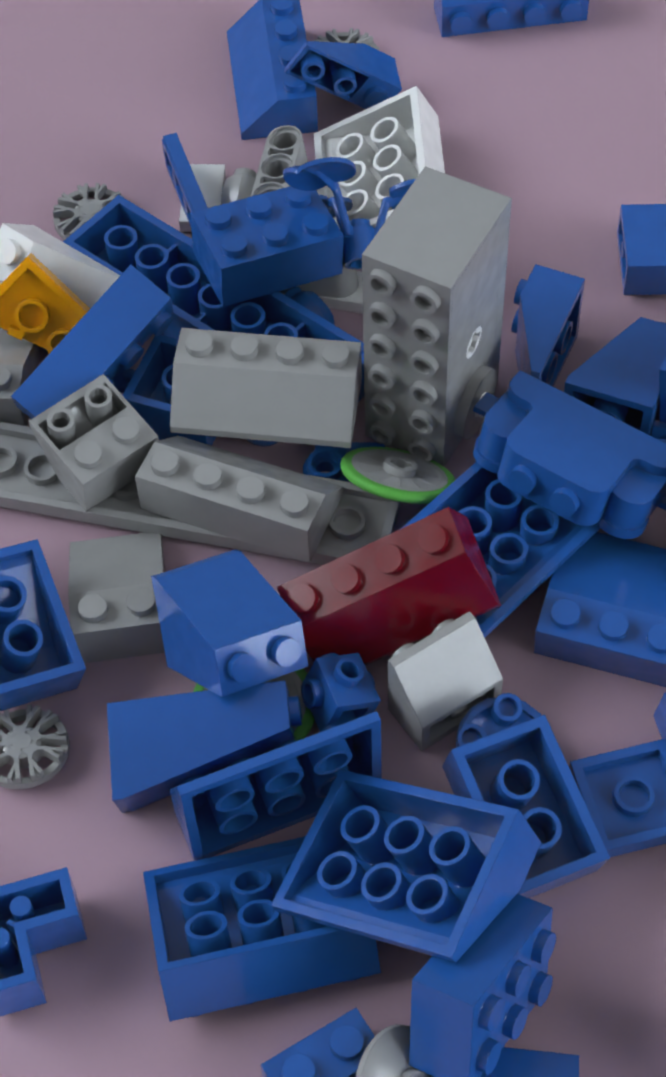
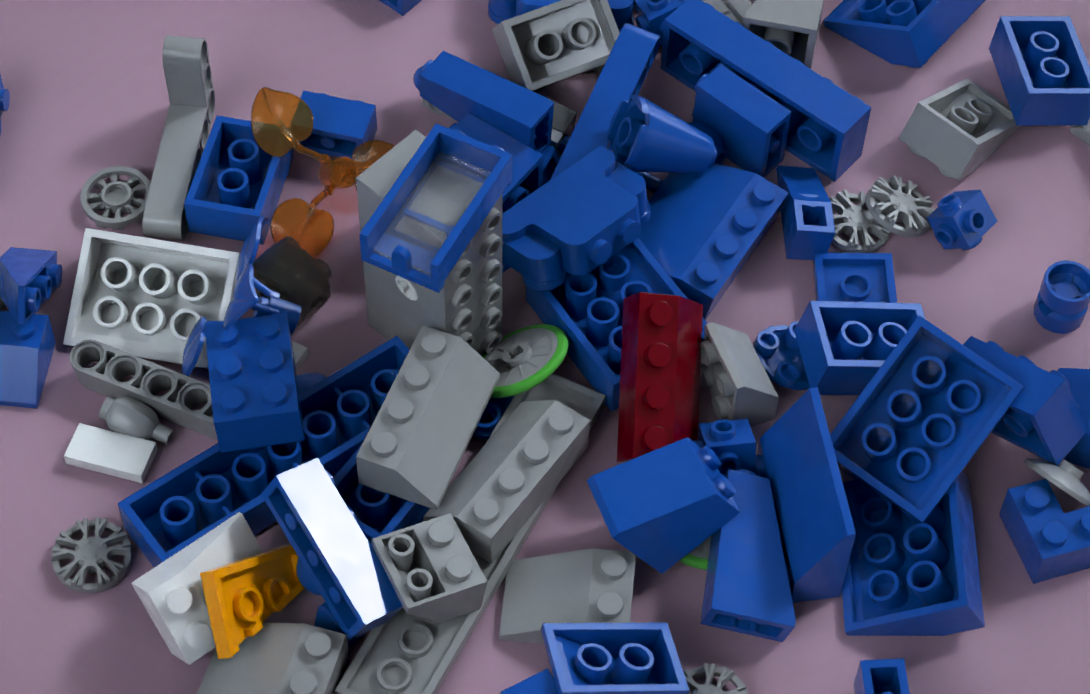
camera: 80 degrees left, 0 degrees up
(182, 176) = (117, 451): blue tile -> none
(395, 225) = (435, 207): none -> door
(496, 122) = (115, 197): none -> light grey wheel
(552, 190) = (234, 183): none -> blue brick
(573, 146) = (184, 135): none -> light grey beam
(599, 184) = (282, 122): none -> clear orange plant

